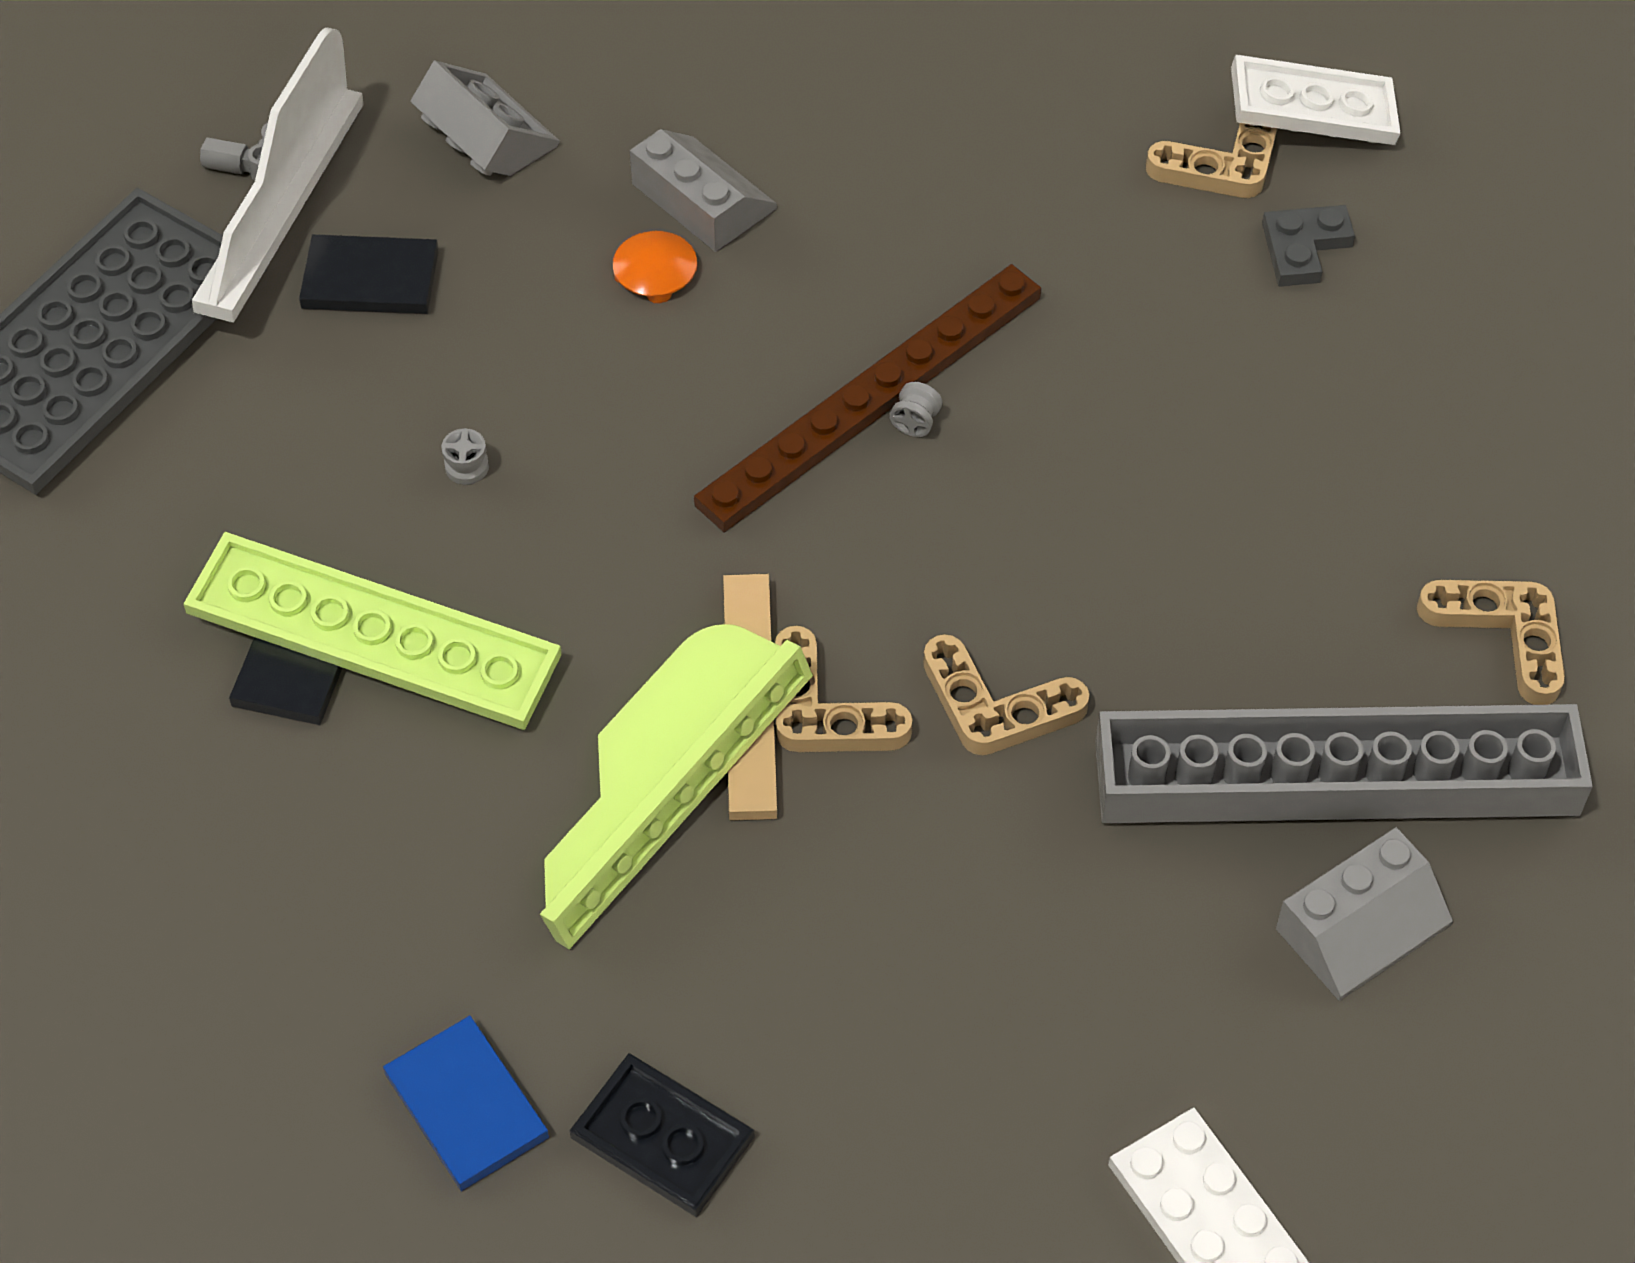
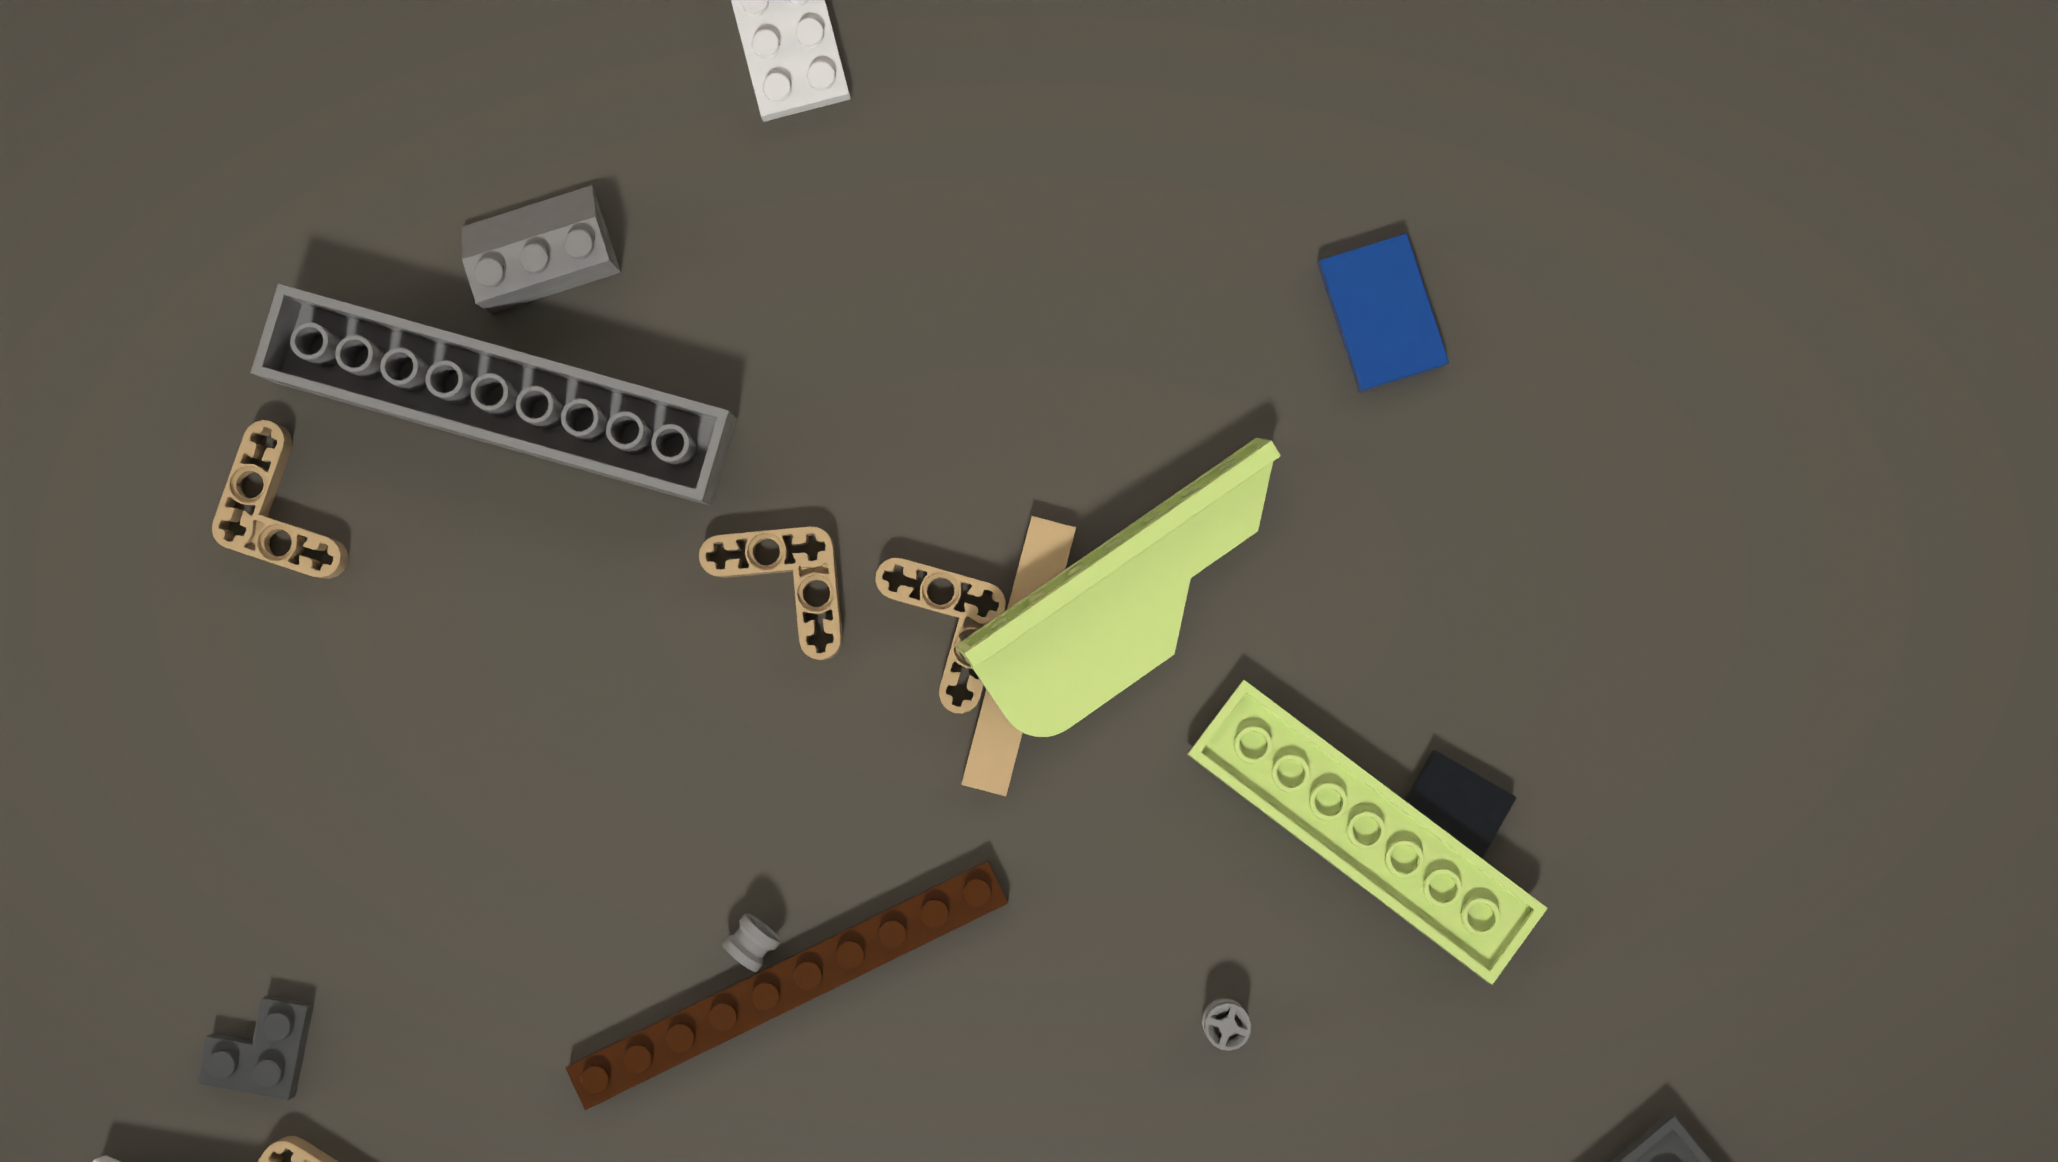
camera: 165 degrees left, 30 degrees up
(662, 1134) = (1221, 234): black tile -> none

